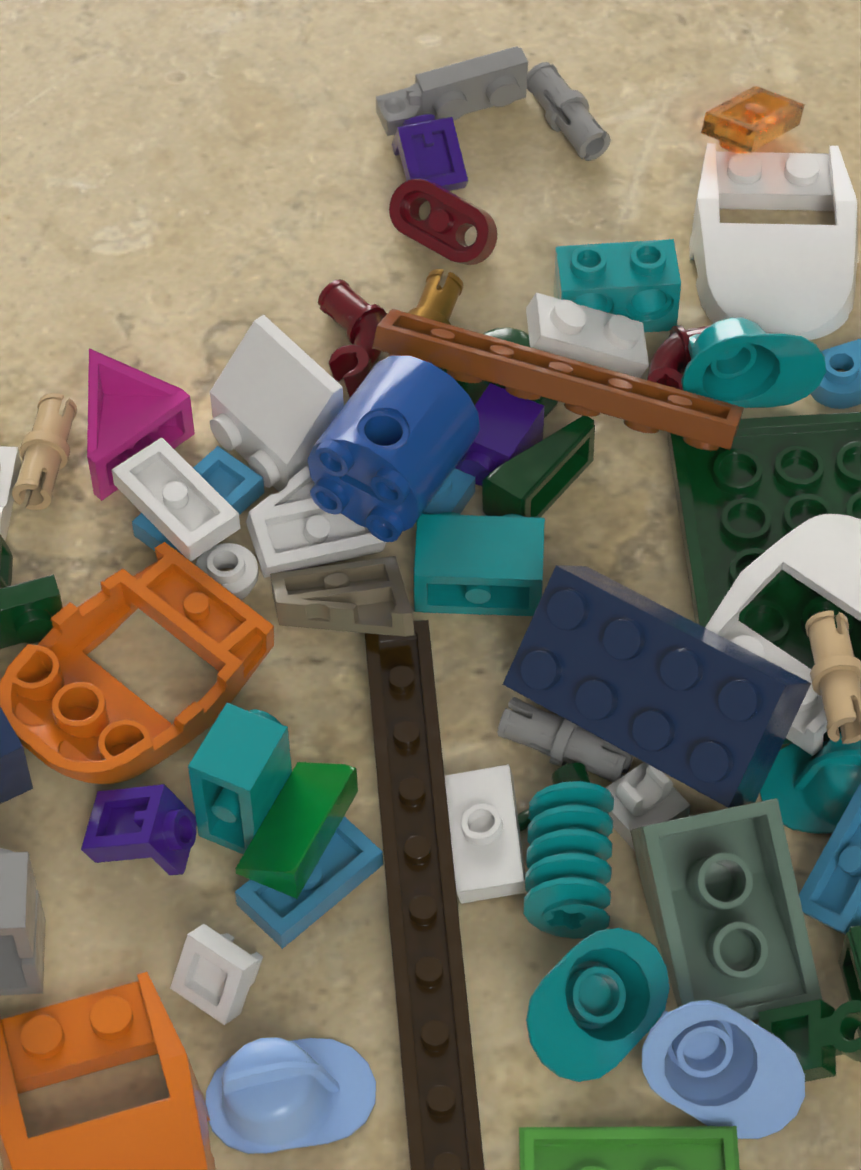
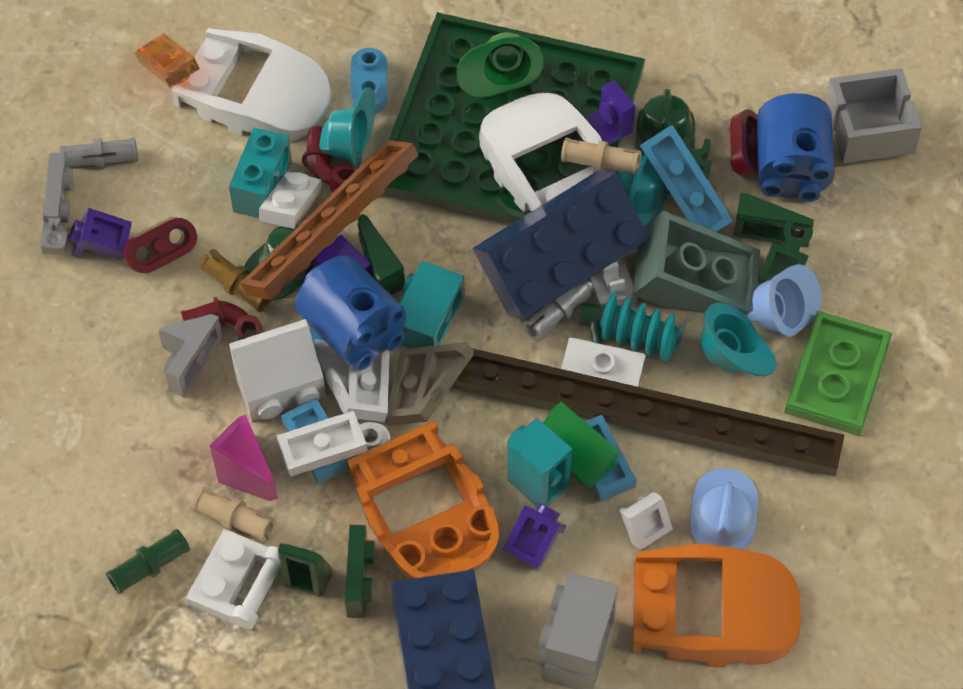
camera: 70 degrees left, 5 degrees up
(299, 310) = (191, 347): none -> light grey slope

